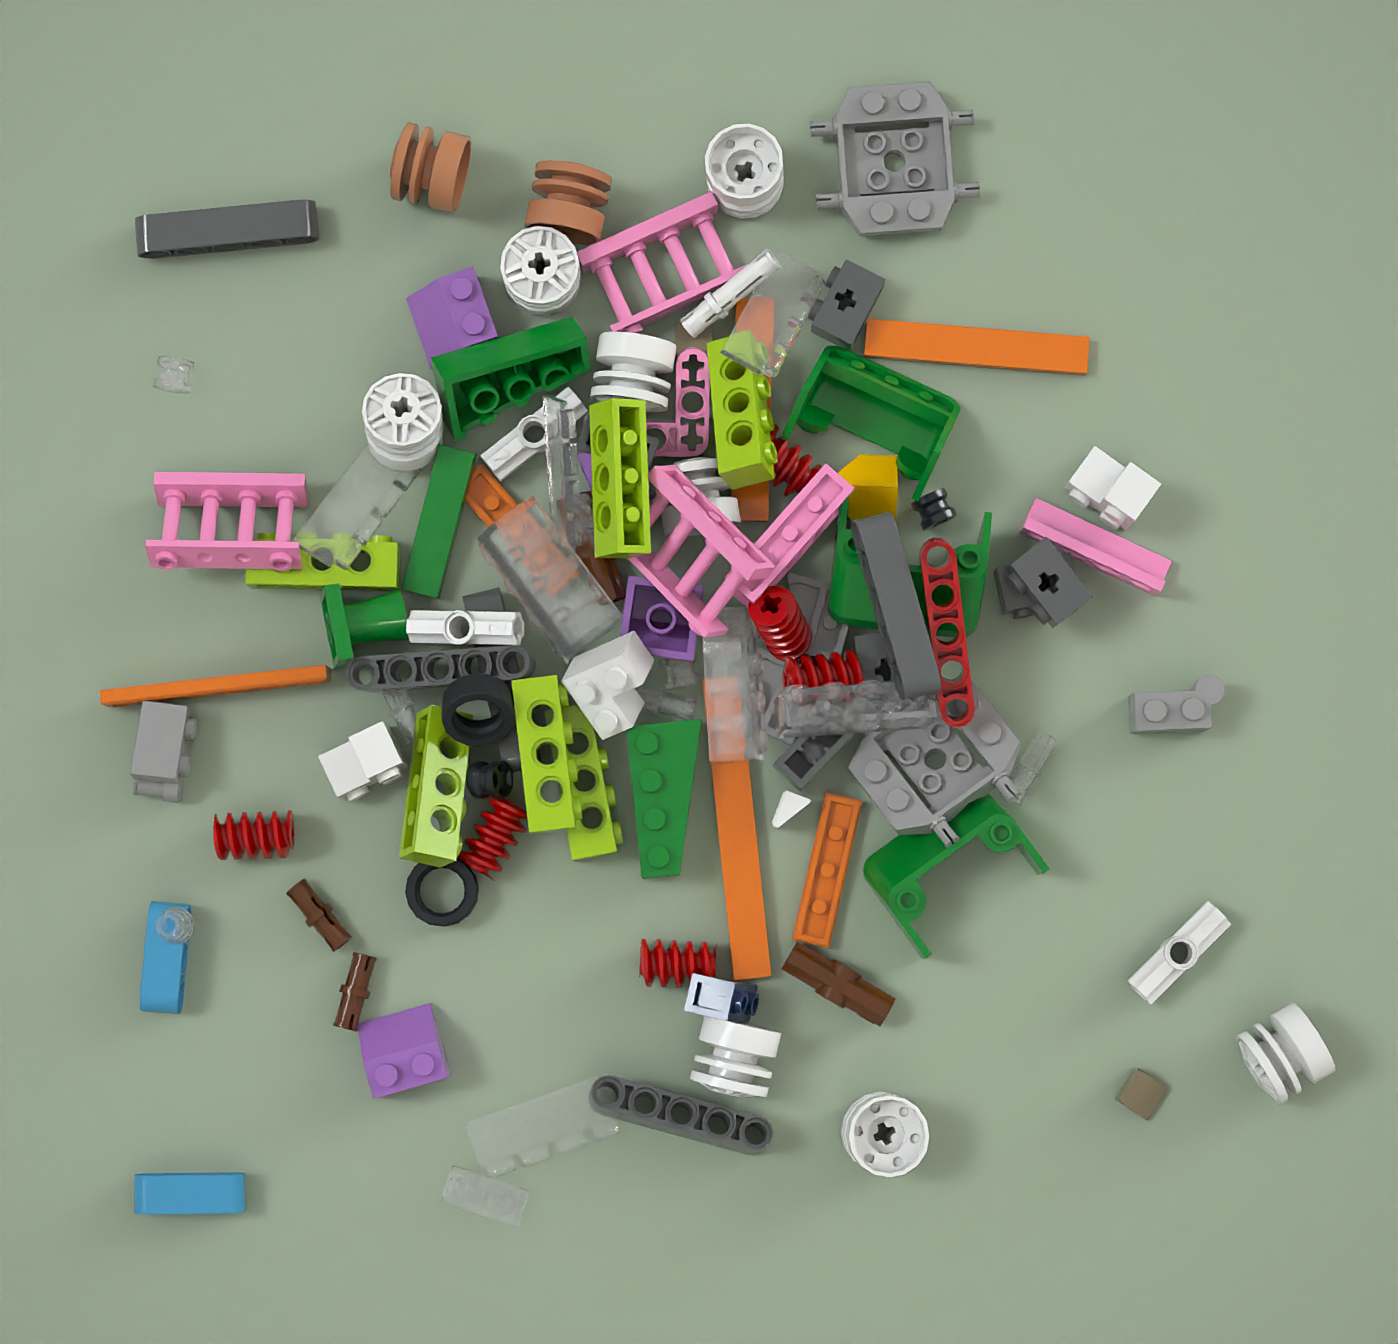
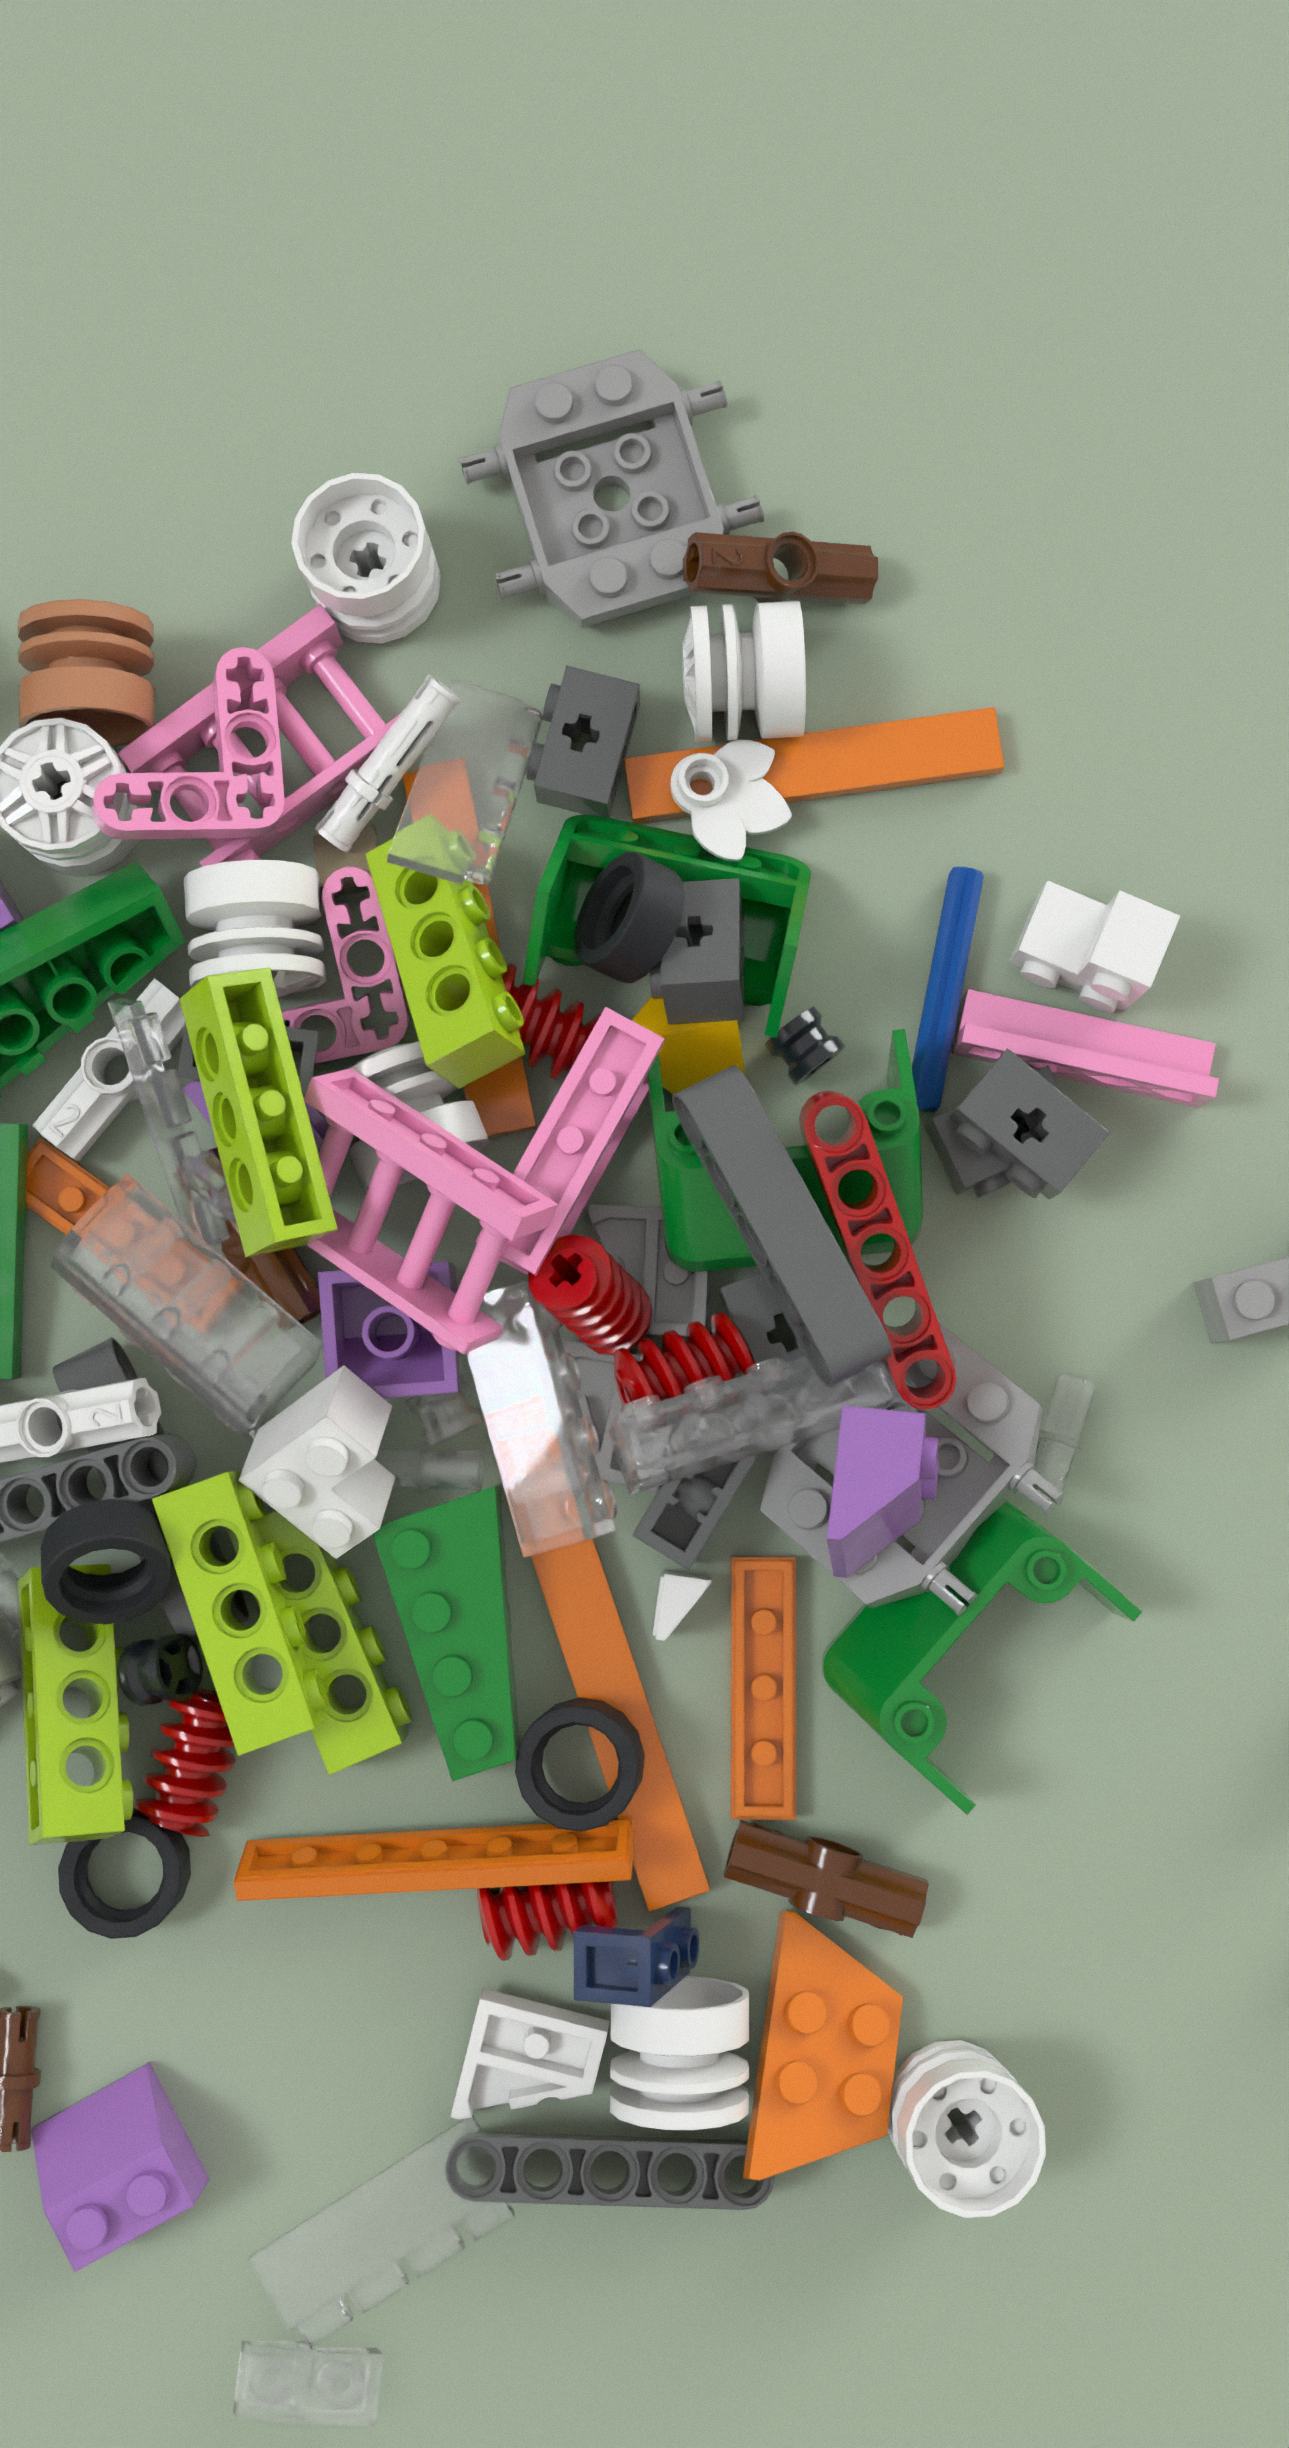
camera: 10 degrees left, 0 degrees up
(621, 921) = (433, 1860): none -> orange tile
(633, 288) = (218, 789): none -> bright pink beam
(647, 1044) = (527, 2053): none -> white wing
(685, 886) = (541, 1796): none -> black tyre
(814, 1077) = (822, 2054): none -> orange wing
(849, 414) = (629, 917): none -> black tyre
(886, 442) = (705, 963): none -> dark grey brick
(917, 761) = (878, 1483): none -> medium lavender slope
(928, 358) = (739, 797): none -> white plate
(948, 285) = (746, 671): none -> white wheel
(963, 223) = (746, 568): none -> reddish brown piece
(1023, 494) = (945, 986): none -> blue axle

